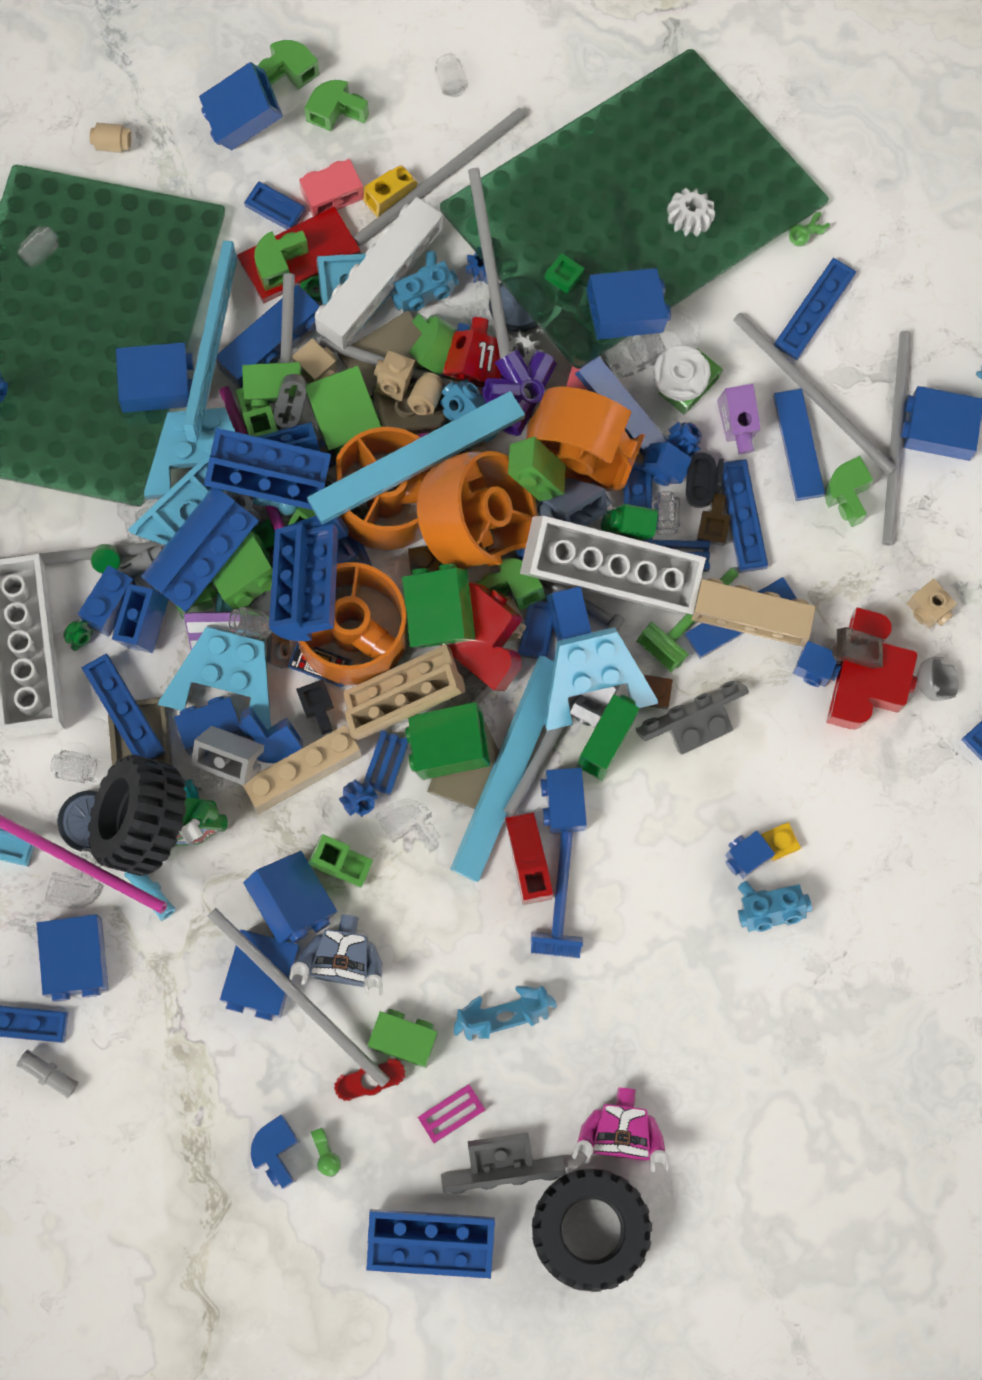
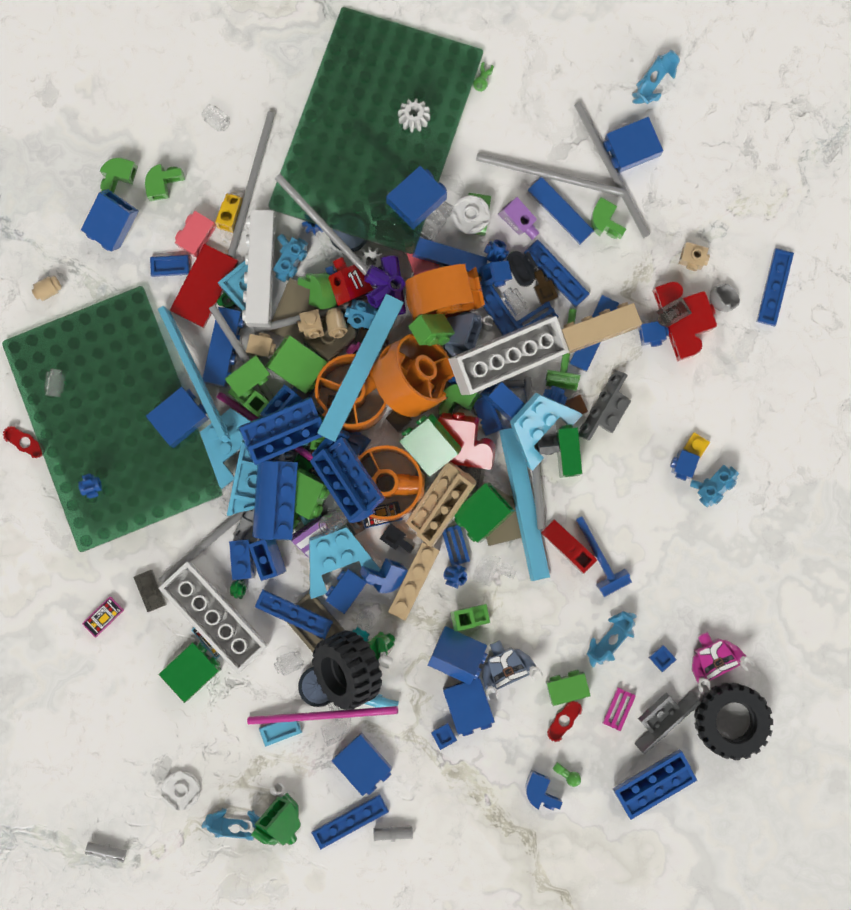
camera: 25 degrees left, 10 degrees up
(103, 556) = (222, 536): green tile -> none
(201, 992) = (444, 736): none -> blue plate
(227, 755) = (372, 604): light grey brick -> none
(273, 254) = (191, 297): bright green brick -> none
(295, 402) = (269, 380): dark grey beam -> none
(298, 997) = (498, 705): light grey piece -> none
(553, 1084) = (662, 658): none -> blue plate
(564, 273) = (368, 202): green tile -> none
(564, 800) = (567, 502): blue brick -> none
(631, 521) = (502, 324): green brick -> none
(643, 657) = (555, 394): none -> blue gear
(815, 308) = (517, 122): blue tile -> none

